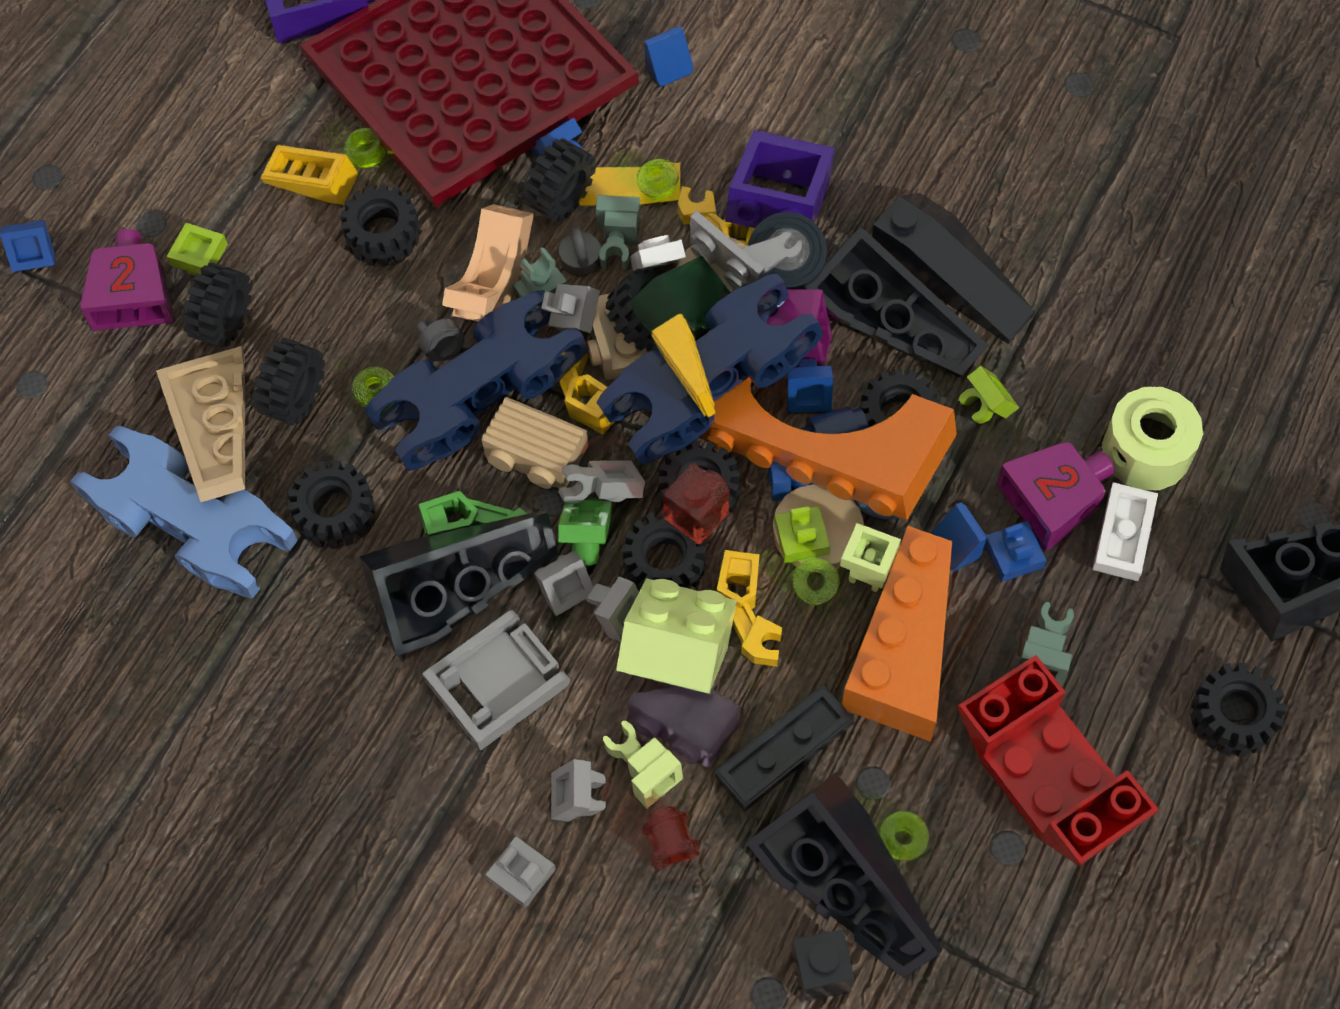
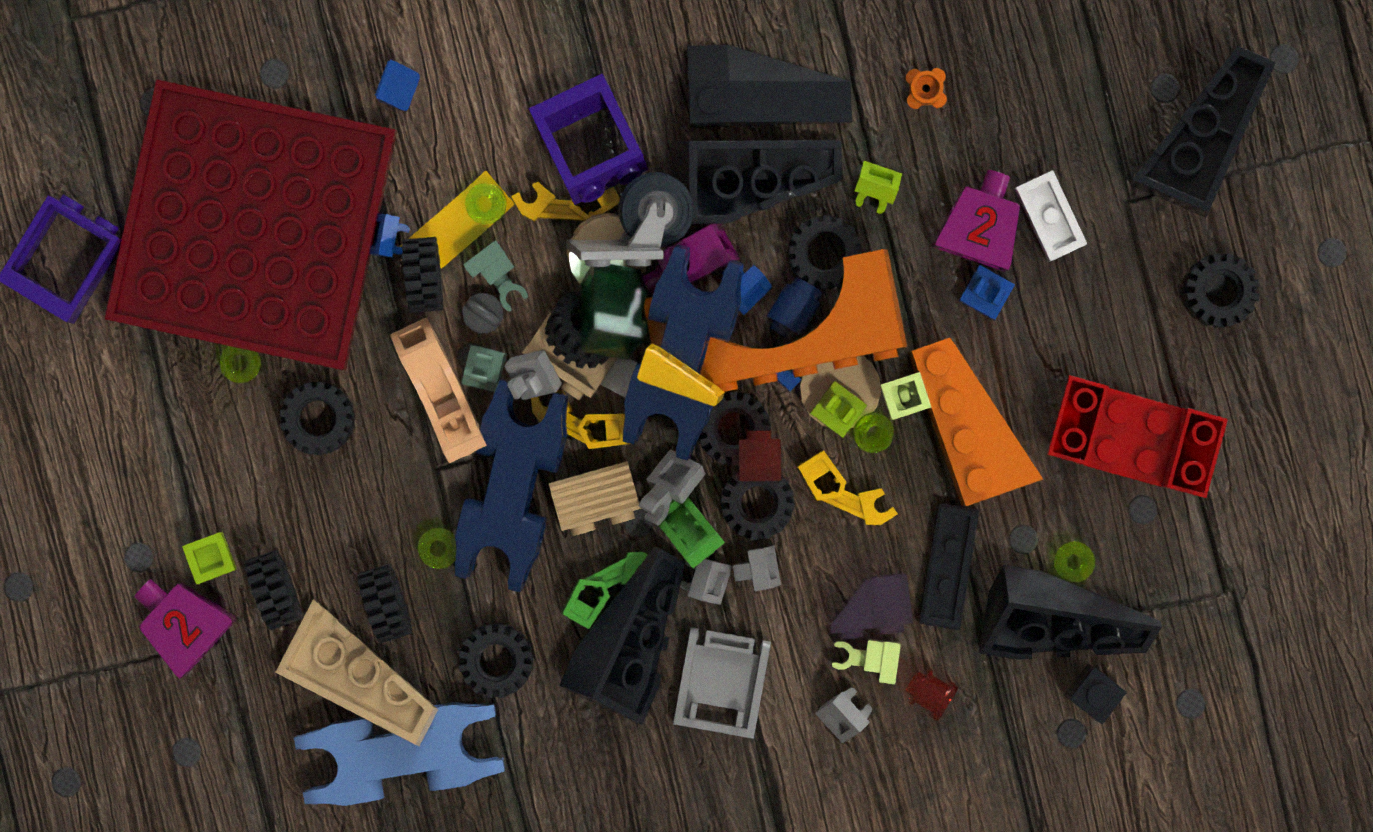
camera: 45 degrees left, 25 degrees up
(28, 245) = (76, 658): blue tile -> none
(333, 184) = (248, 404): yellow slope -> none
(440, 339) = (451, 476): dark grey tile -> none
(520, 872) = (853, 793): light grey tile -> none
(657, 252) = (553, 280): white plate -> none
(676, 635) = (825, 561): yellowish green brick -> none
(965, 535) = (942, 318): blue slope -> none
(1048, 643) = (1066, 356): sand green piece -> none
(1099, 349) = (934, 80): none -> orange plate
(1152, 462) = (998, 147): yellowish green piece -> none

